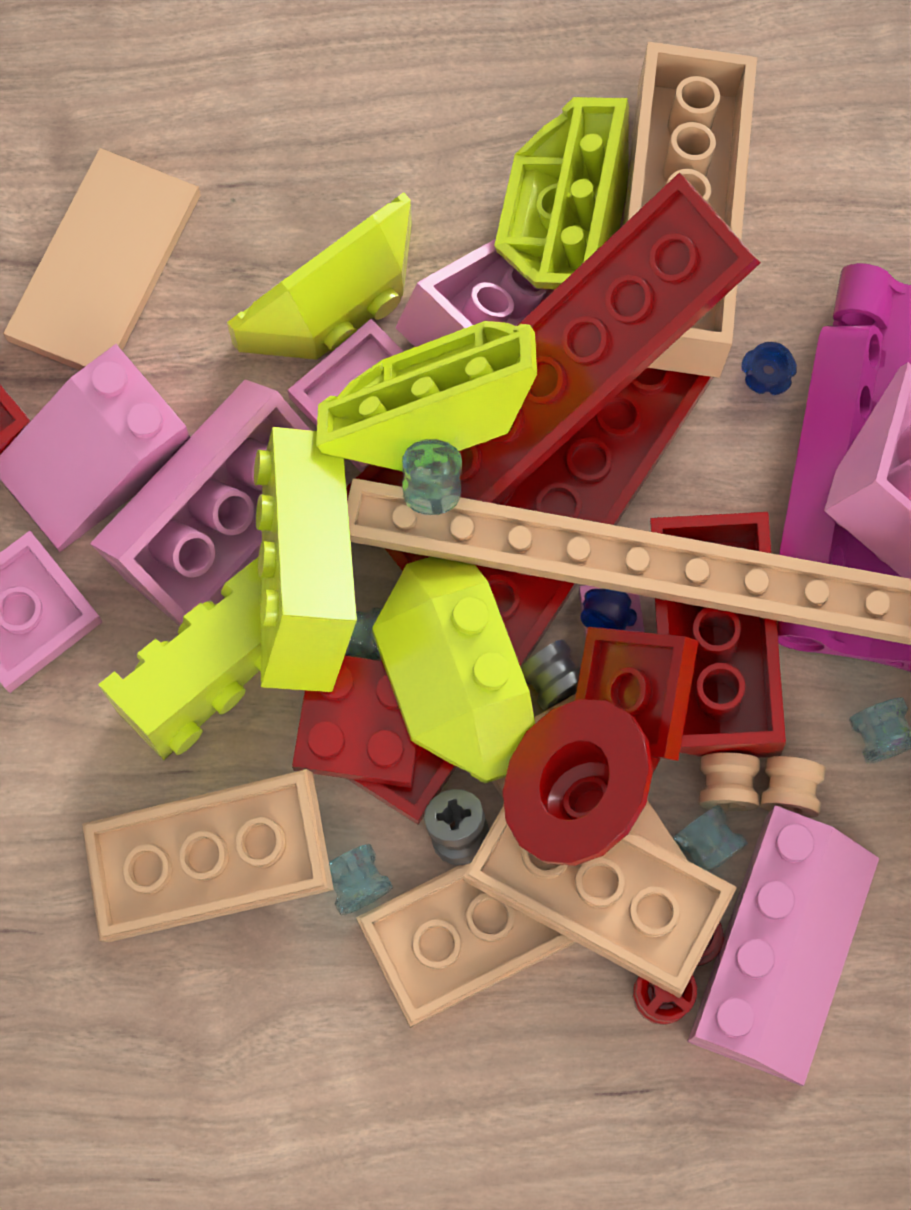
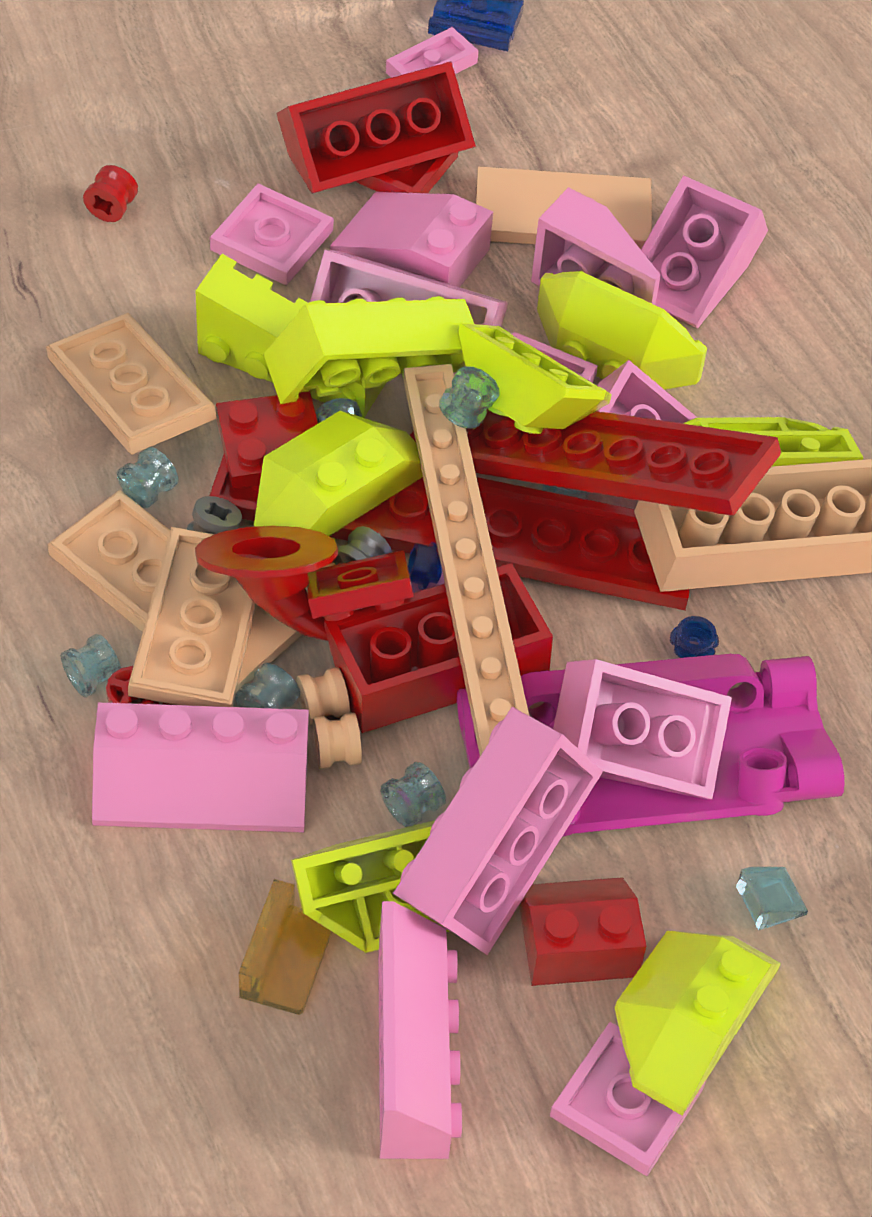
camera: 65 degrees right, 20 degrees down
(231, 257) = (588, 238): none -> bright pink slope
(243, 151) = (701, 248): none -> bright pink slope
(607, 1025) = (90, 664): none -> clear light blue wheel

